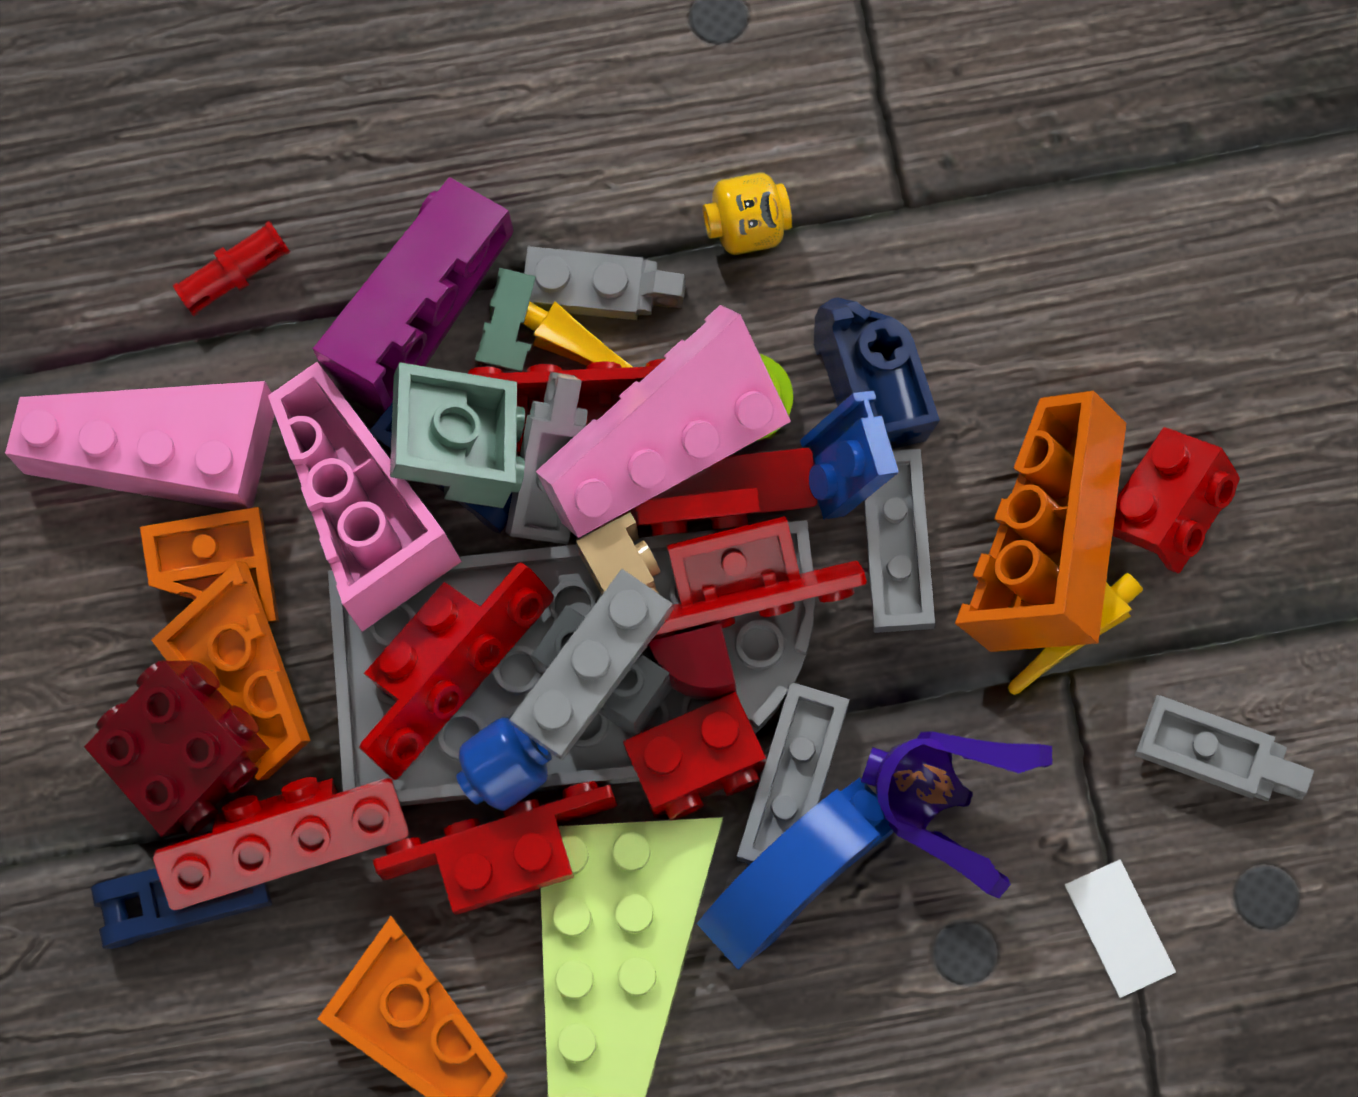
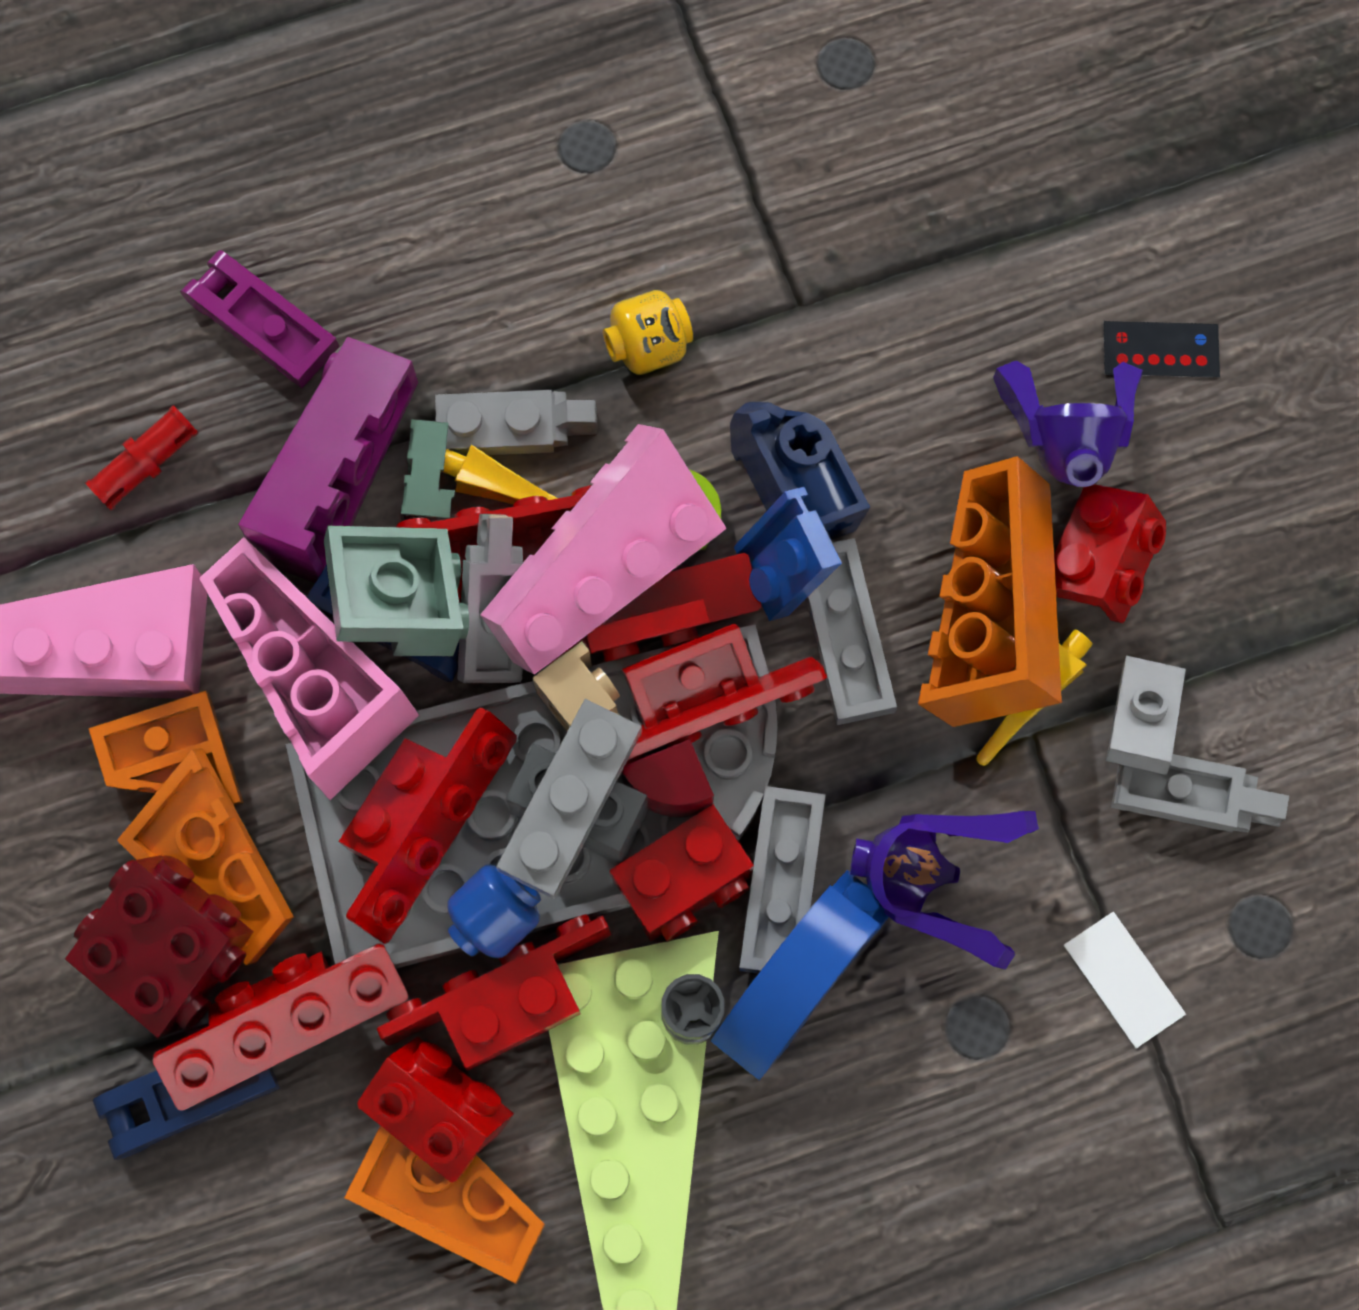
camera: 15 degrees left, 0 degrees up
(368, 147) = (261, 319): none -> magenta plate
(417, 945) = (434, 1107): none -> red bracket
(682, 879) = (696, 1000): none -> dark grey wheel
(1156, 381) = (1071, 439): none -> dark purple piece
(1183, 668) = (1146, 715): none -> light grey plate
(1265, 302) = (1163, 348): none -> black sticker

